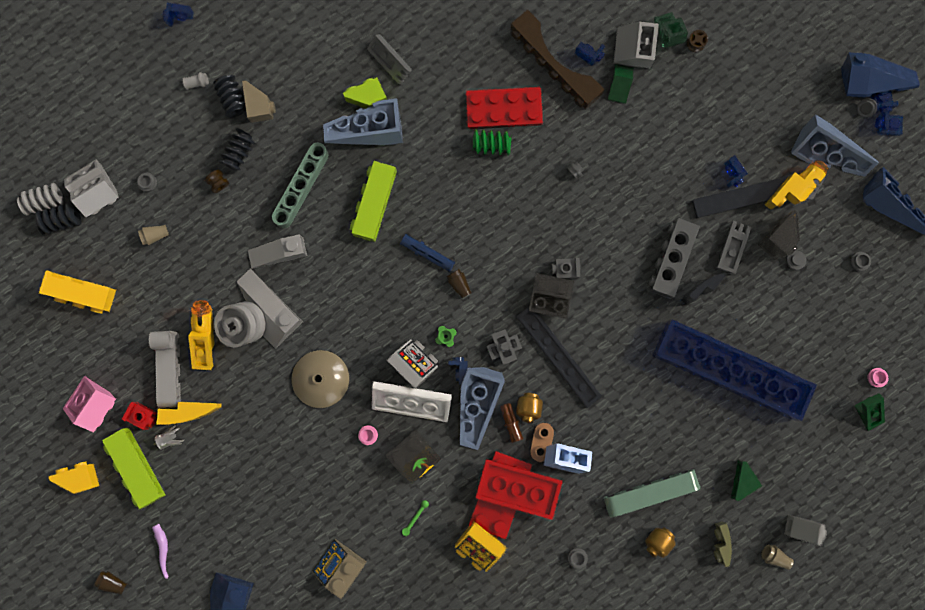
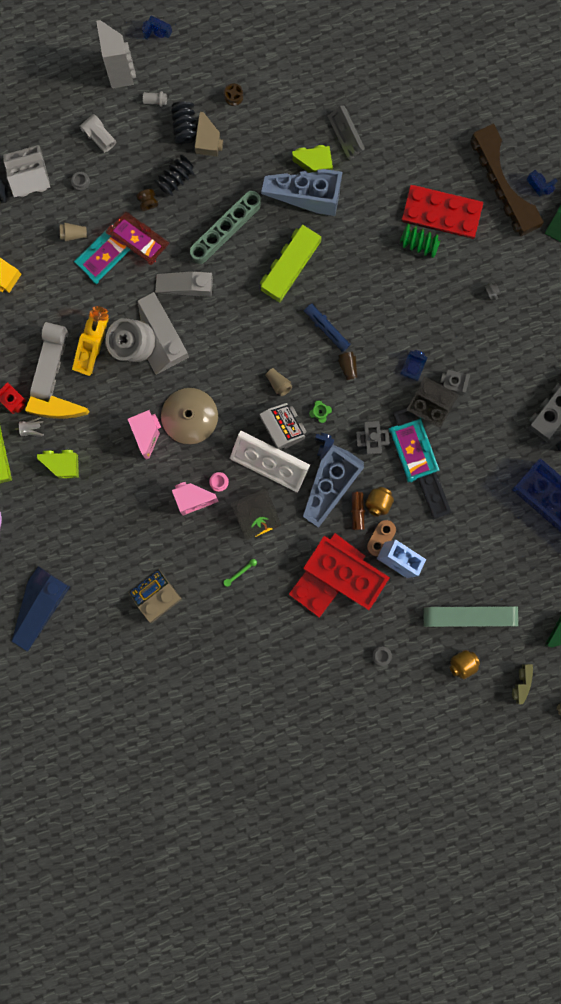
camera: 15 degrees right, 0 degrees up
(141, 52) = (116, 56): none -> light grey slope
(148, 129) = (97, 132): none -> light grey piece
(193, 247) = (99, 261): none -> door
(209, 219) = (145, 245): none -> door
(209, 466) = (62, 464): none -> lime slope
(267, 52) = (233, 90): none -> dark brown wheel
(281, 410) = (146, 432): none -> bright pink slope
(344, 461) = (192, 498): none -> bright pink slope
(397, 320) = (279, 382): none -> dark tan cone
(479, 547) = (293, 615): yellow piece -> none
(522, 263) = (414, 365): none -> clear blue bracket
(539, 341) = (411, 450): none -> door

